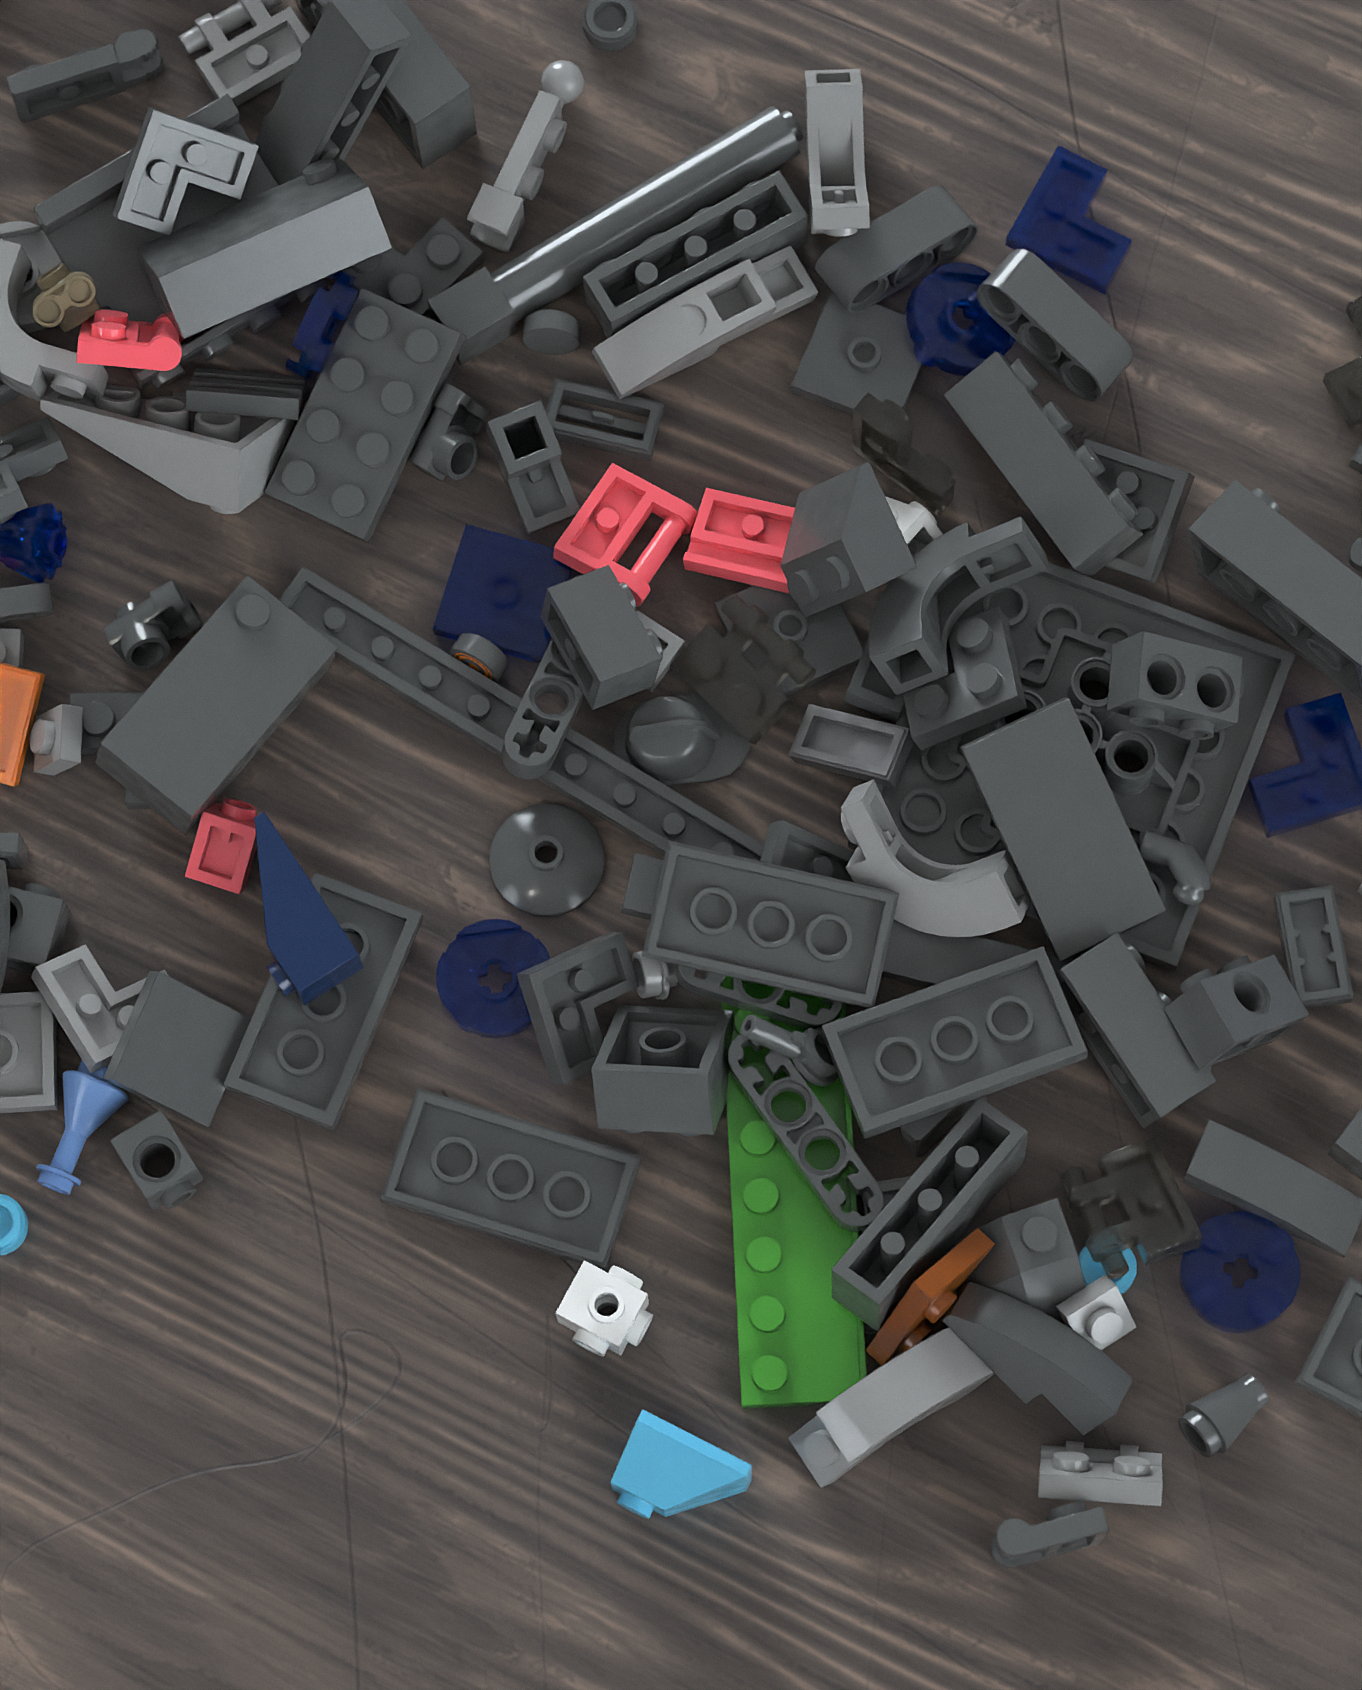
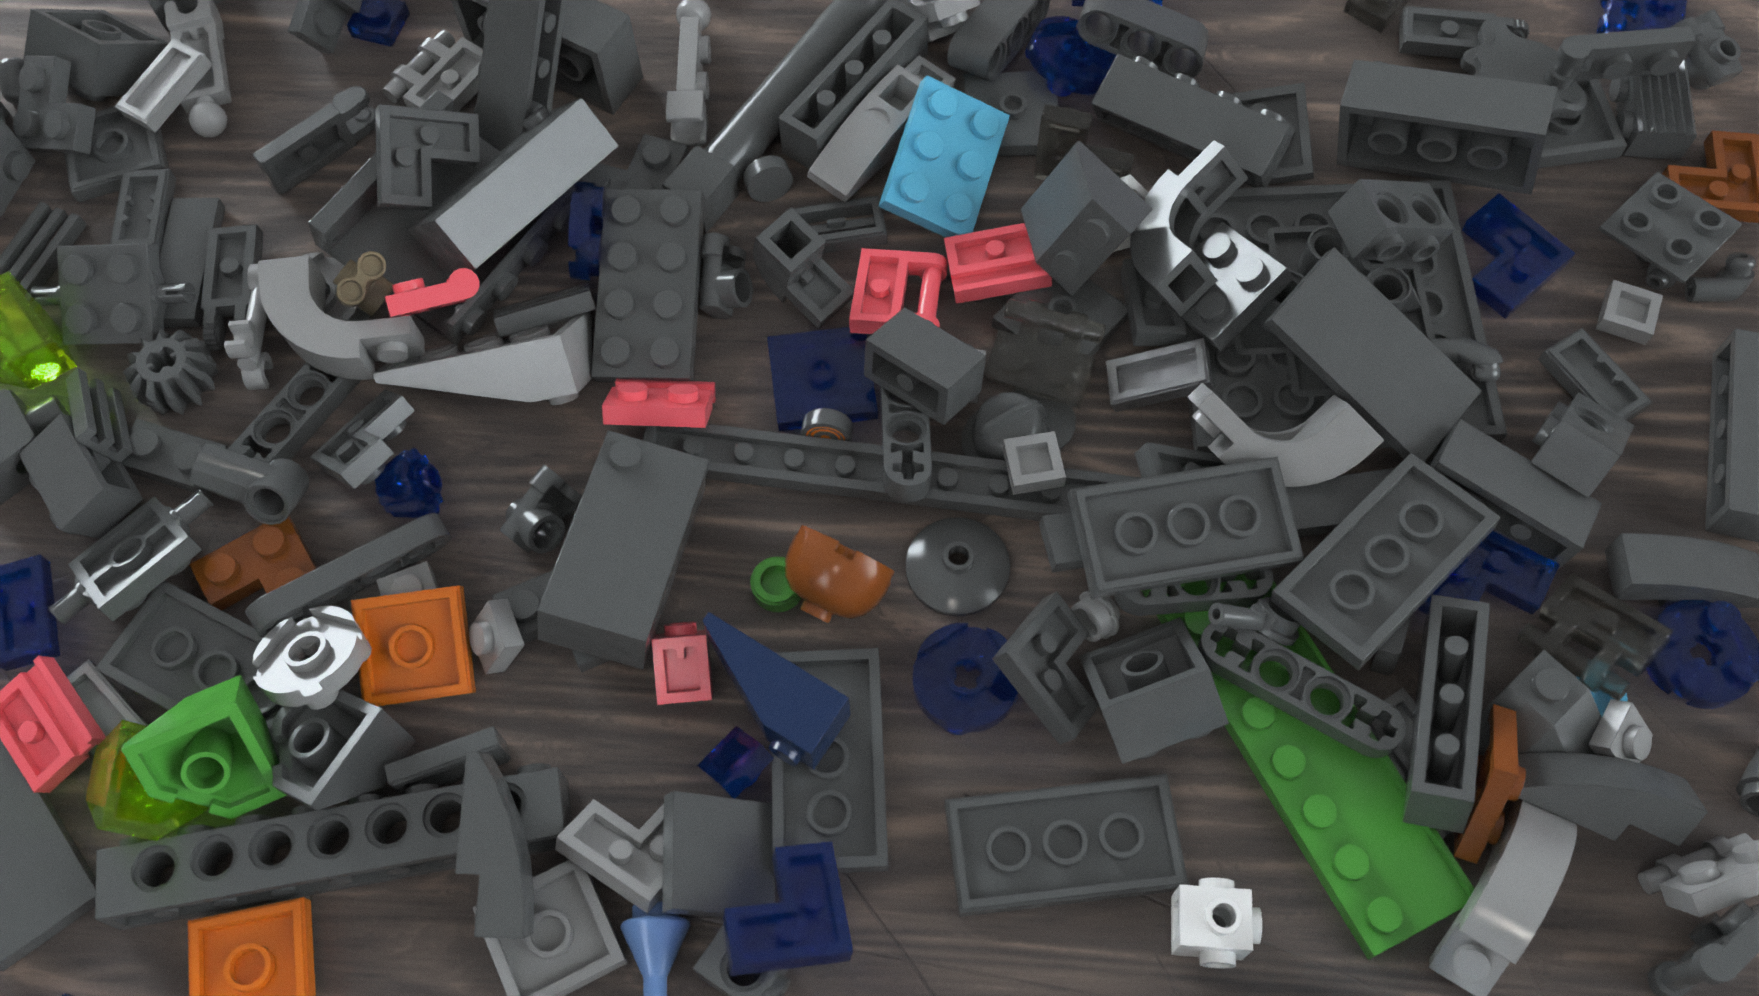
camera: 25 degrees left, 10 degrees down
(220, 1148) = (803, 927): none -> clear blue plate
(234, 965) = (735, 762): none -> clear blue plate
(320, 556) = (659, 403): none -> coral plate
(357, 801) = (771, 586): none -> bright green tile
(409, 822) = (834, 576): none -> dark orange cylinder
(663, 789) = (1034, 462): none -> light grey plate
(748, 397) = (944, 159): none -> medium azure plate
(1081, 1095) = (1503, 571): none -> clear blue plate

